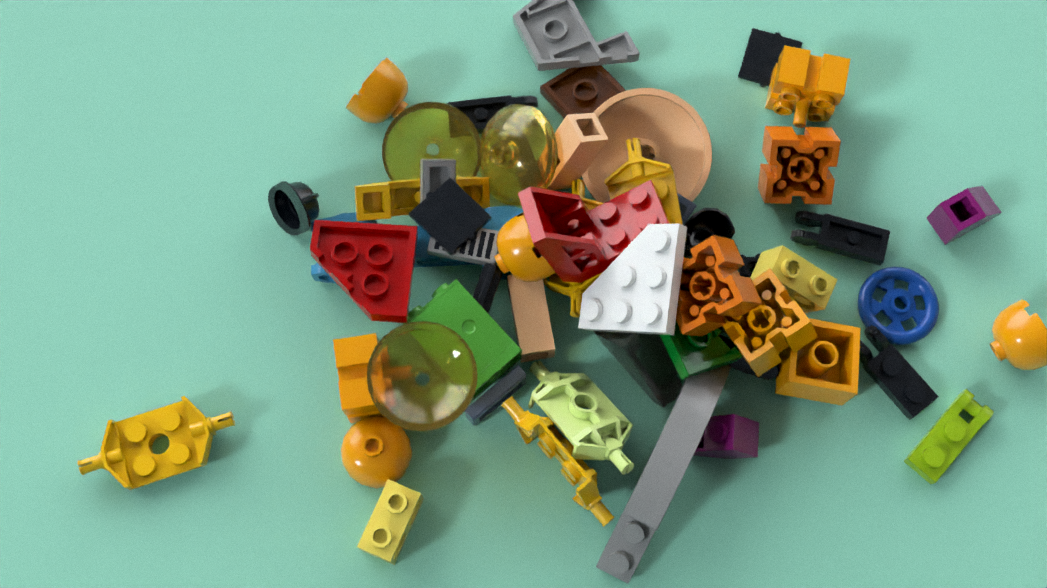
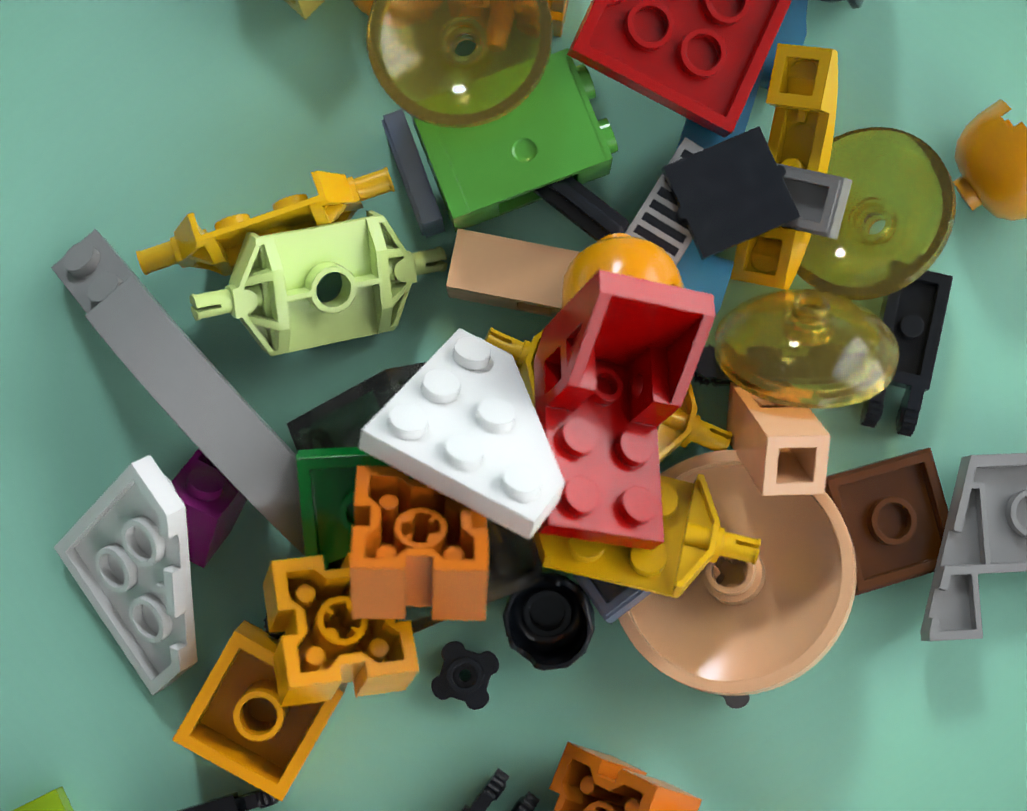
camera: 115 degrees right, 10 degrees up
(778, 453) = (137, 571): none -> white plate
(803, 280) = (412, 729): light yellow brick -> none

